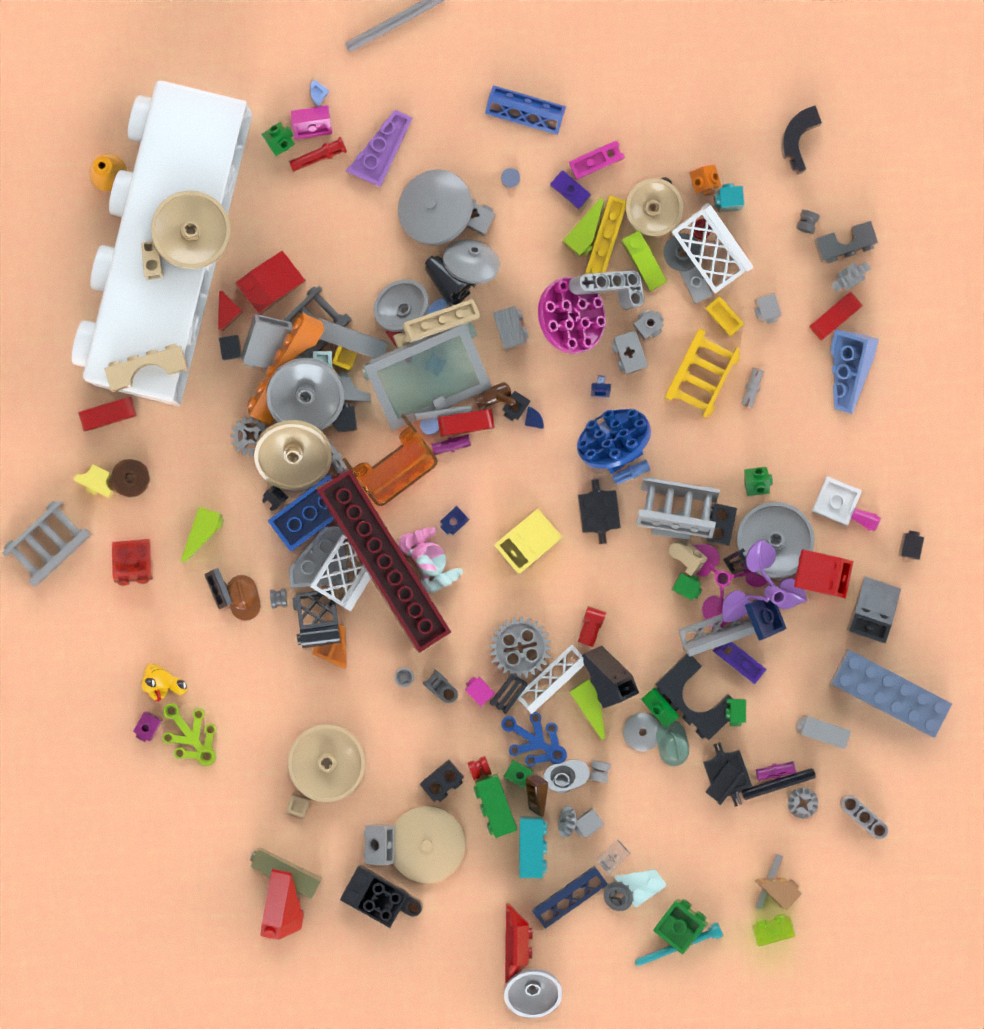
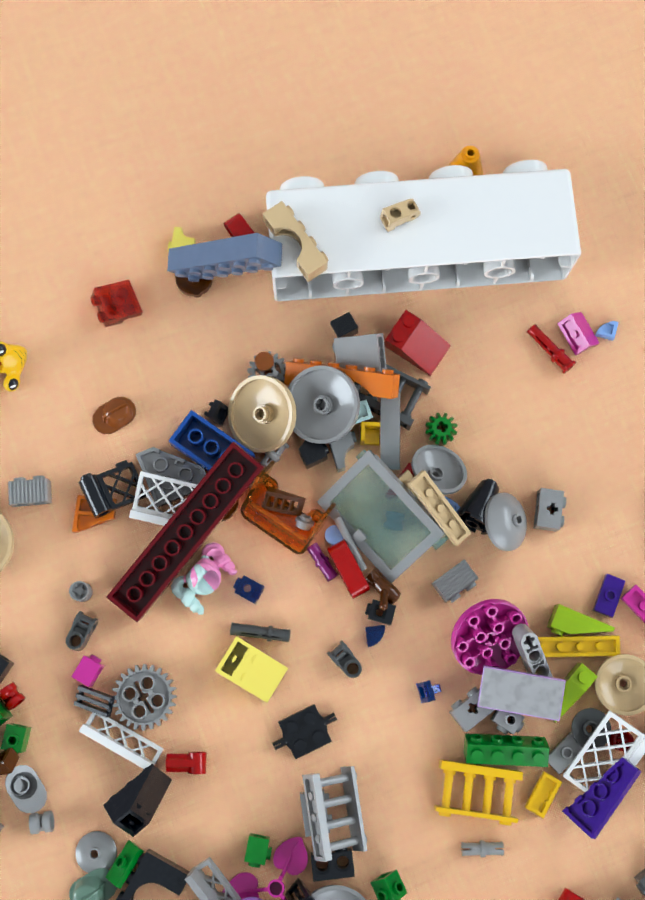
camera: 70 degrees right, 10 degrees down
(52, 562) = (109, 242): light grey fence -> none
(135, 441) = (225, 257): none -> sand blue brick
(190, 229) = (441, 237): tan dish -> none
(203, 529) = (166, 356): lime slope -> none
(218, 588) = (114, 389): black plate -> none
(227, 311) = (376, 313): red slope -> none
(242, 436) = (264, 361): none -> dark orange tile
(278, 138) = (552, 307): green brick -> none
(278, 598) = (122, 446): dark grey wheel -> none
(293, 698) = (29, 492): none -> light grey brick
(366, 294) = (438, 434): none -> green gear
(374, 464) = (274, 506): none -> reddish brown slope
(378, 155) = (577, 404): medium lavender wing -> none
(409, 448) = (304, 522): none -> light grey plate
(435, 207) = (544, 470): light grey dish -> none
(497, 522) = (260, 632): none -> dark grey pin
(510, 177) = (598, 533): sand blue tile -> none
(537, 741) = (54, 745): blue plant -> none
(547, 453) = (344, 659): none -> dark grey piece
(587, 699) = (109, 784): lime slope -> none
(614, 440) = (380, 724): blue bracket -> none
(630, 305) = (521, 693): none -> flat silver tile
(631, 472) = (354, 751): medium blue axle -> none
(675, 336) = (506, 750): none -> green brick
(688, 556) = (289, 840): tan leg -> none
(747, 271) = (598, 804): none -> dark purple wing
(767, 309) = (567, 837): light grey brick -> none

